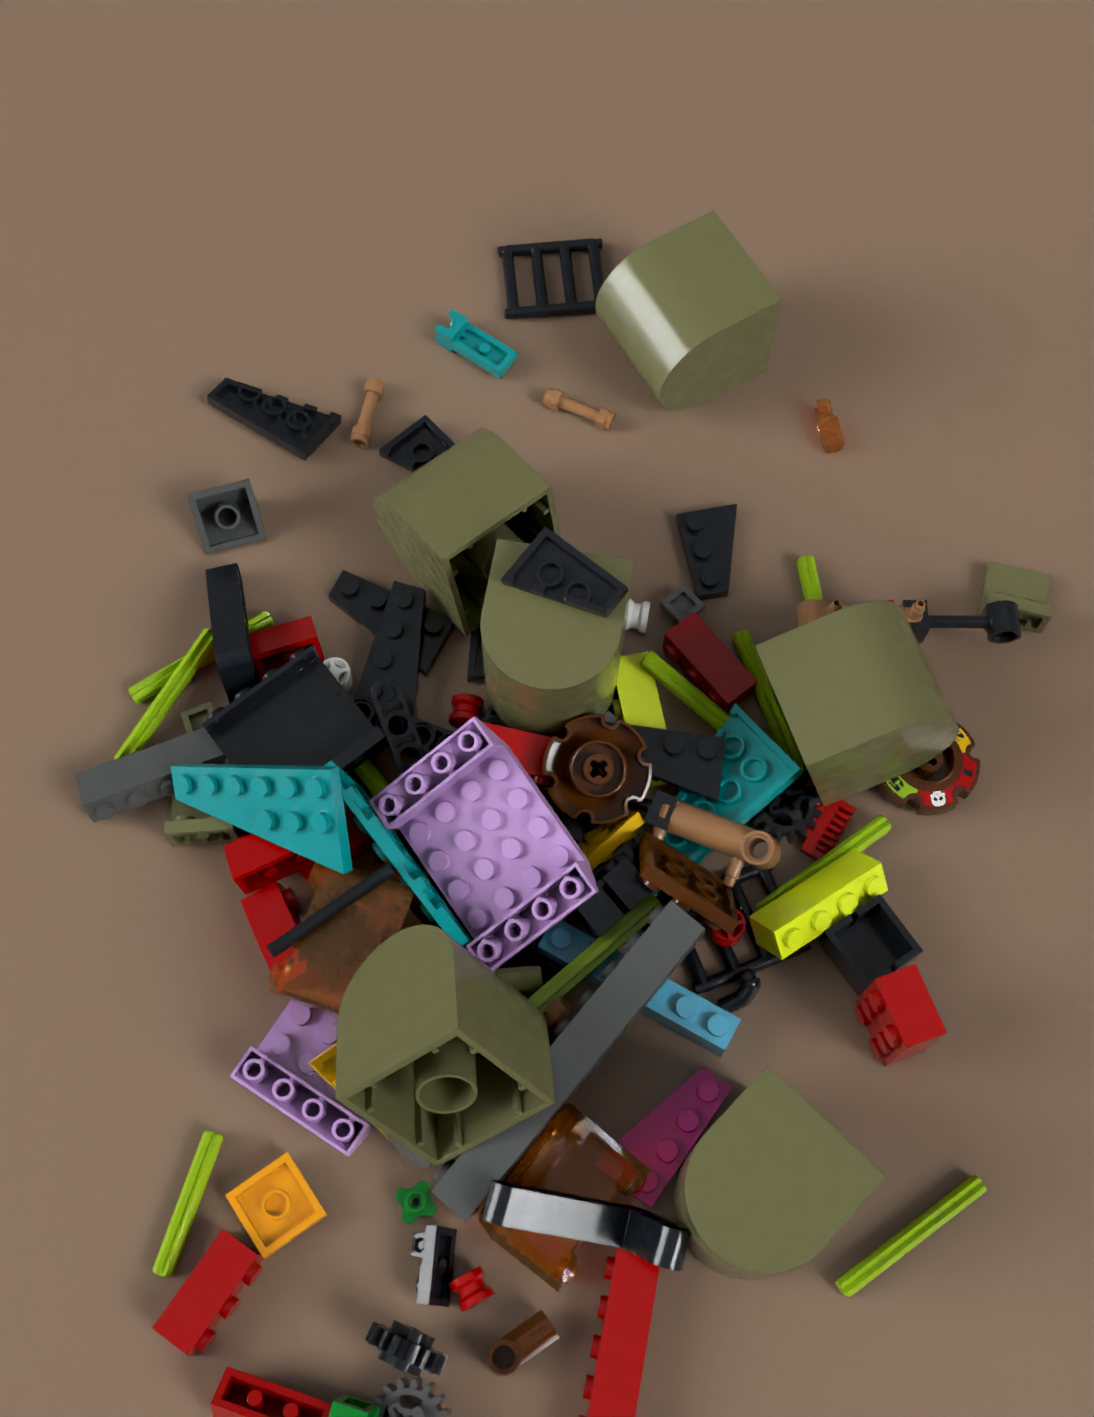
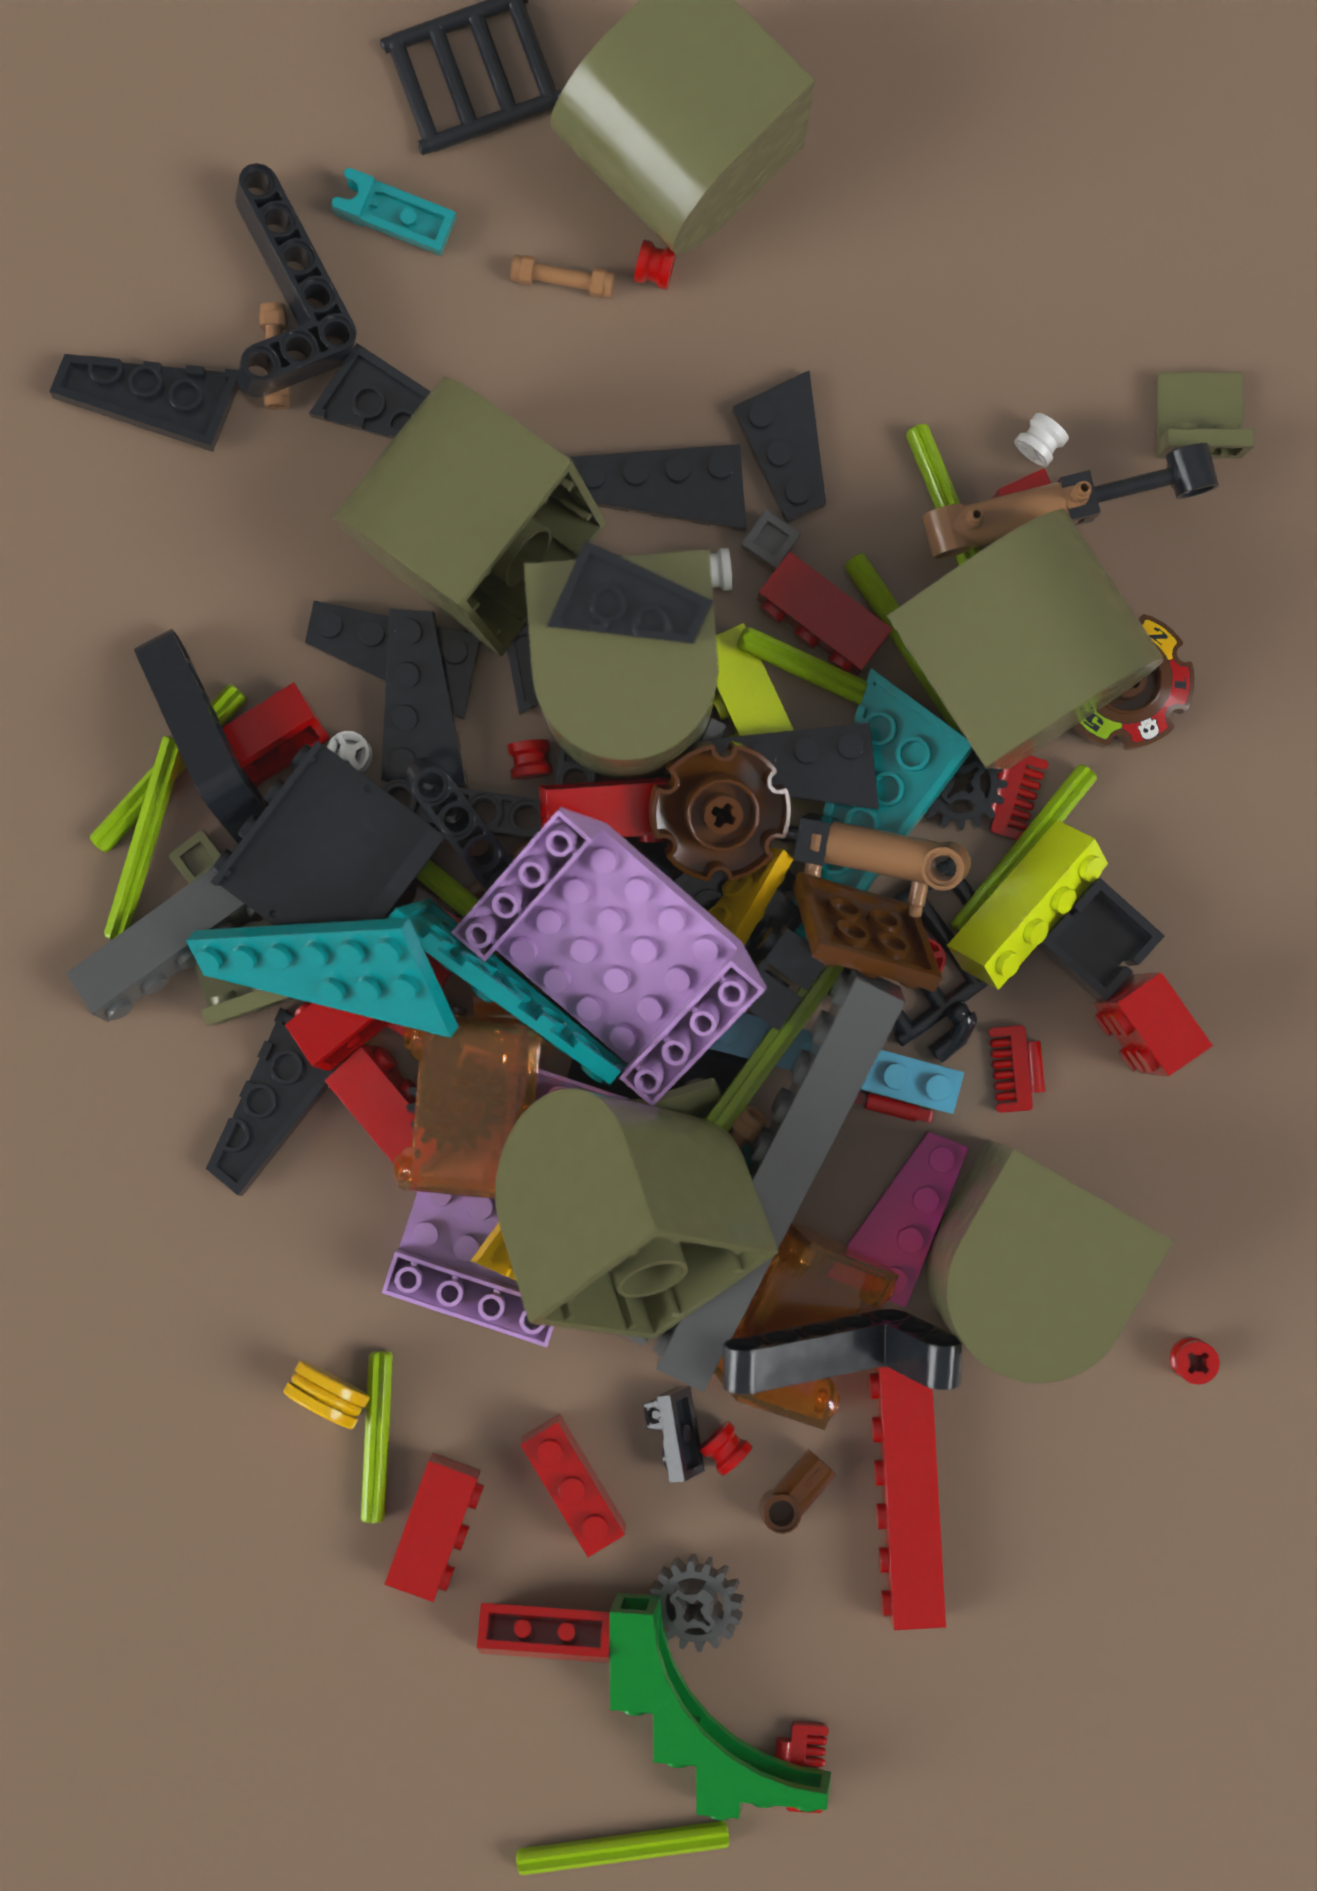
camera: 15 degrees left, 20 degrees up
(159, 1151) = (326, 1394): none -> yellow head
(191, 918) = (269, 1109): none -> black wing
(227, 516) = (138, 565): dark grey slope -> none
(276, 1205) = (478, 1414): light orange plate -> none
(330, 910) = (448, 1083): black bar -> none
(335, 1286) = (573, 1485): none -> red brick
(406, 396) = (296, 287): none -> black beam
(406, 1348) = (672, 1533): black gear -> none
(425, 1206) = (636, 1357): green plate -> none
(645, 414) = (654, 265): none -> red wheel
(650, 553) = (673, 483): none -> black wing
(676, 1034) = (894, 1107): none -> red piece
(792, 1035) = (1026, 1066): none -> red piece
(828, 427) = (908, 219): clear orange bar -> none
(879, 1322) = (1187, 1354): none -> red wheel
(895, 584) = (1041, 439): none -> white wheel
(910, 1236) = (1207, 1260): lime axle -> none

